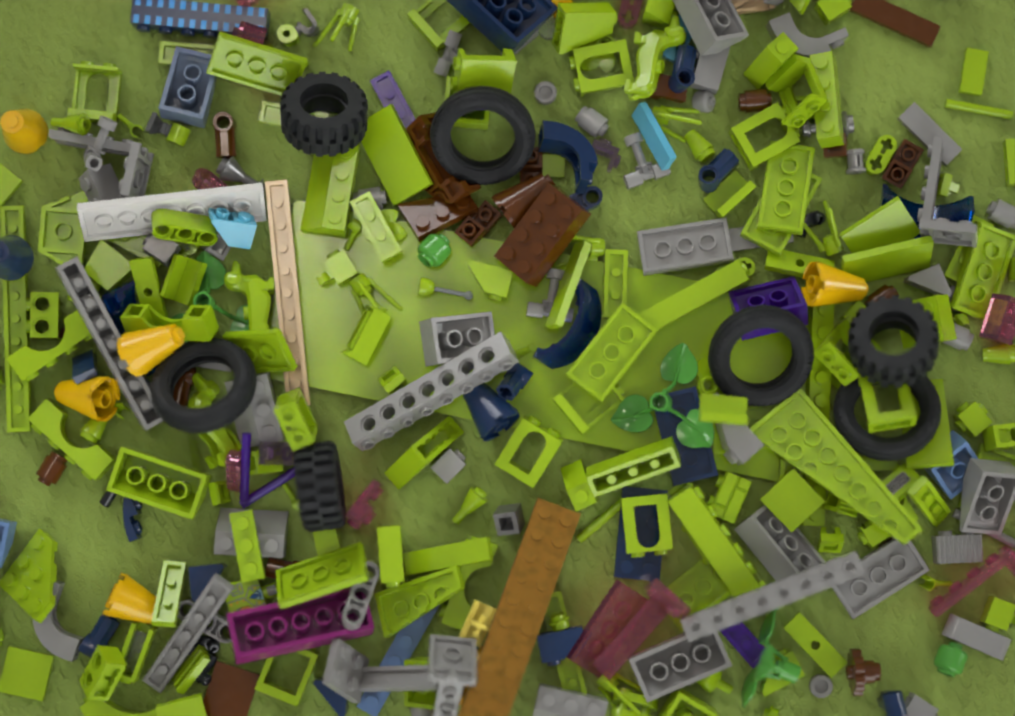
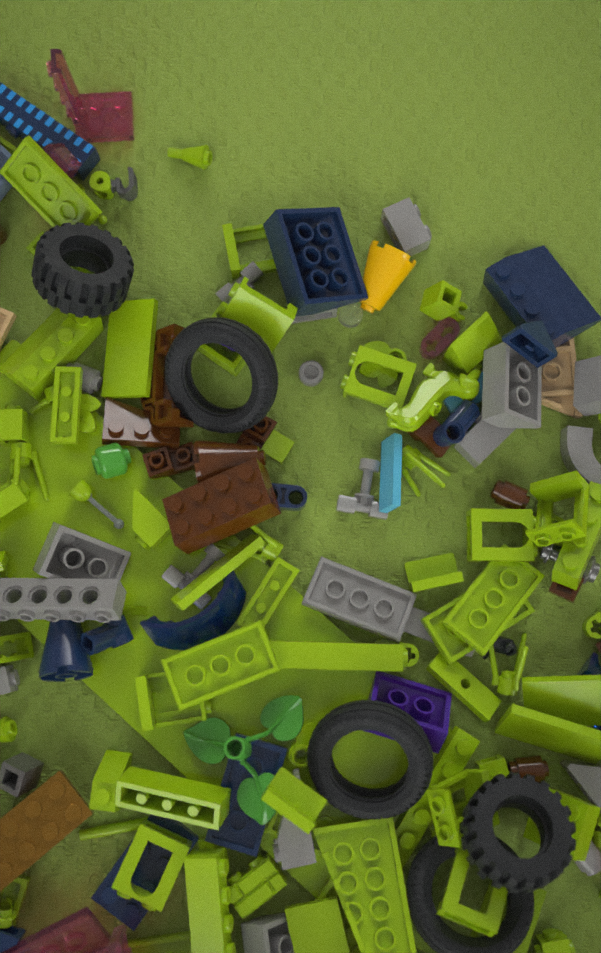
camera: 30 degrees right, 5 degrees down
(346, 16) = (167, 198): lime plant -> none
(389, 93) = (164, 291): tile -> none
(526, 426) = (60, 727): lime panel -> none
(572, 146) = (306, 439): dark blue arch -> none
(581, 24) = (383, 327): lime slope -> none
(592, 121) = (339, 425): light grey brick -> none
(604, 148) = (336, 457): bracket -> none
(699, 146) = (430, 509): lime cone -> none
(703, 101) = (459, 468): light grey piece -> none
(718, 169) = (435, 541): dark blue piece -> none
(770, 60) = (548, 464): lime slope -> none
(831, 285) = (483, 728): yellow cone -> none
(855, 161) = (577, 613): light grey bush -> none

